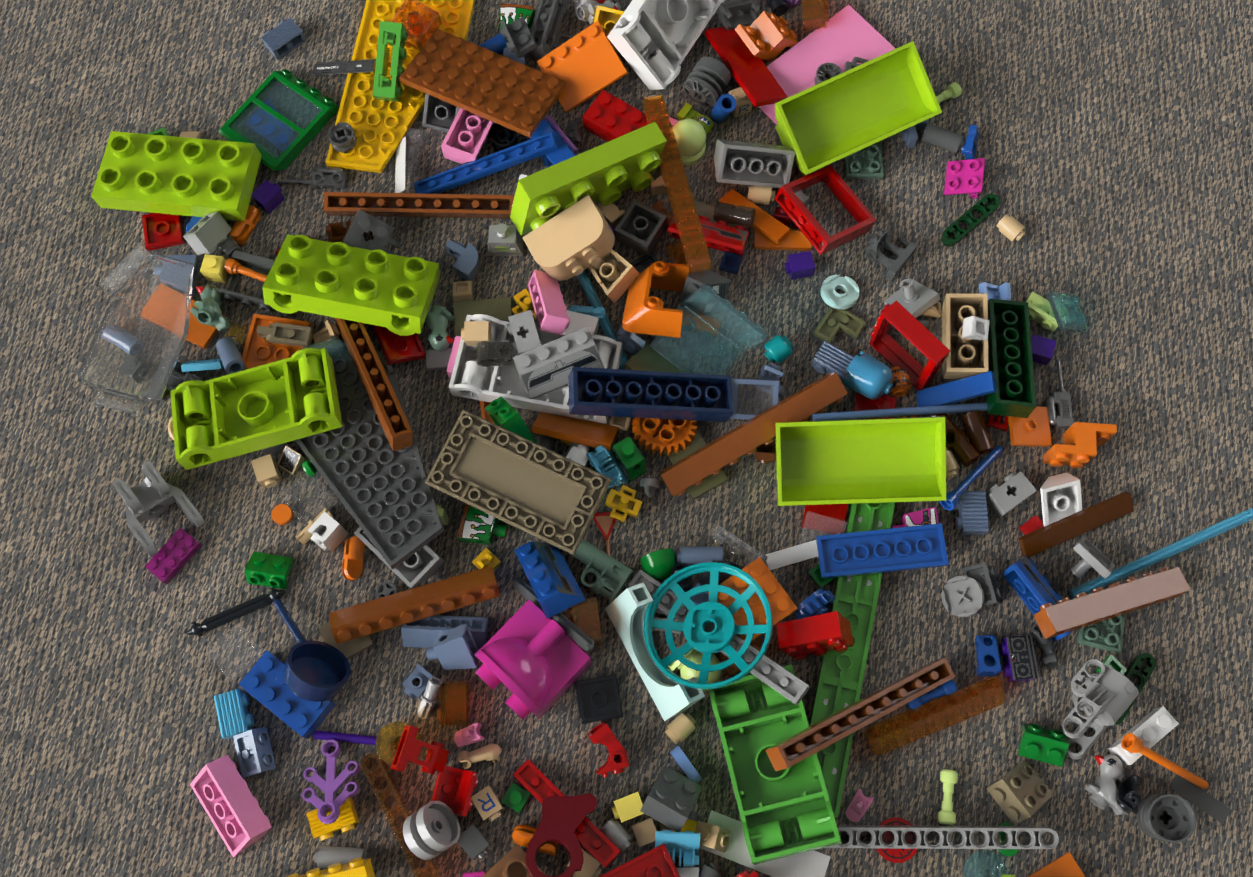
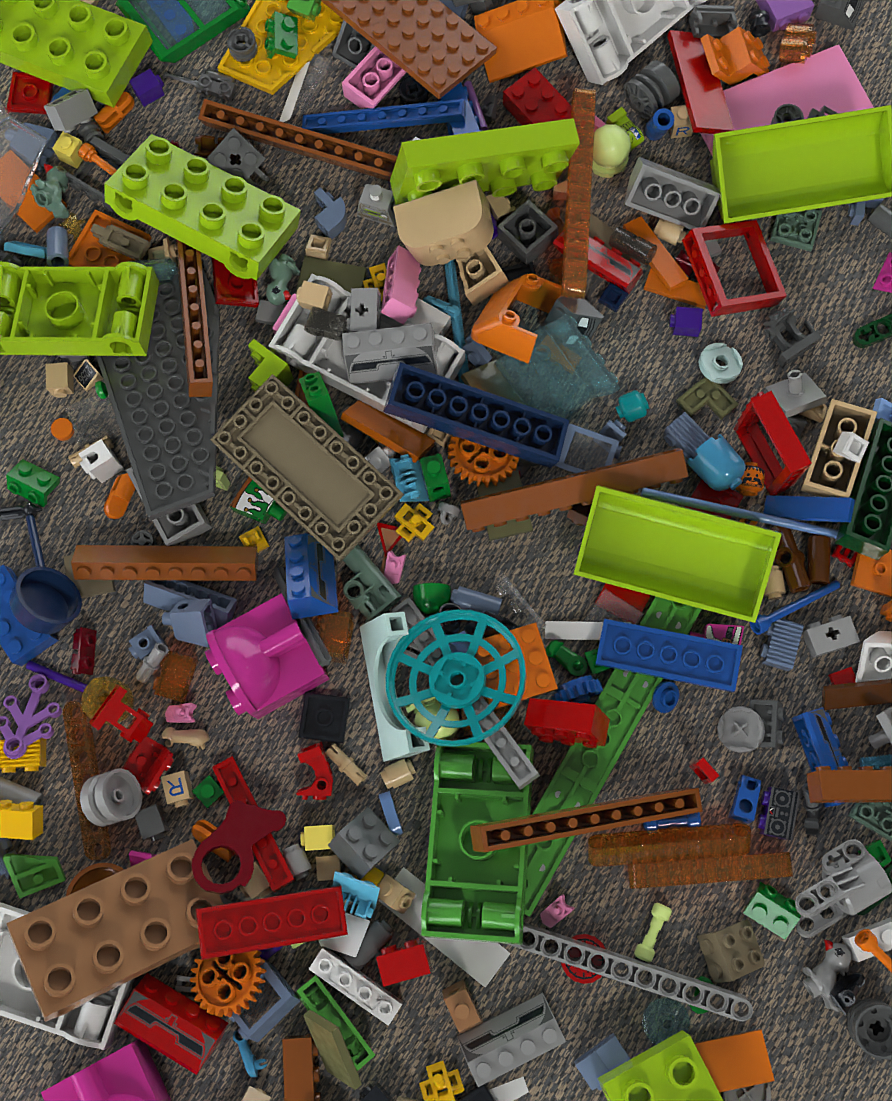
camera: 20 degrees right, 5 degrees up
(360, 697) = (85, 643): none -> dark red hinge
(374, 121) = (281, 35): none -> green bracket
(452, 404) = (267, 364): none -> lime bracket
(618, 547) = (394, 567): none -> bright pink piece
(632, 734) = (346, 764): none -> tan pin
(797, 582) = (568, 659): none -> green piece
(889, 588) = (665, 697): none -> blue piece
(944, 641) = (704, 771): none -> red tile
(977, 727) = (710, 870): none -> clear orange beam

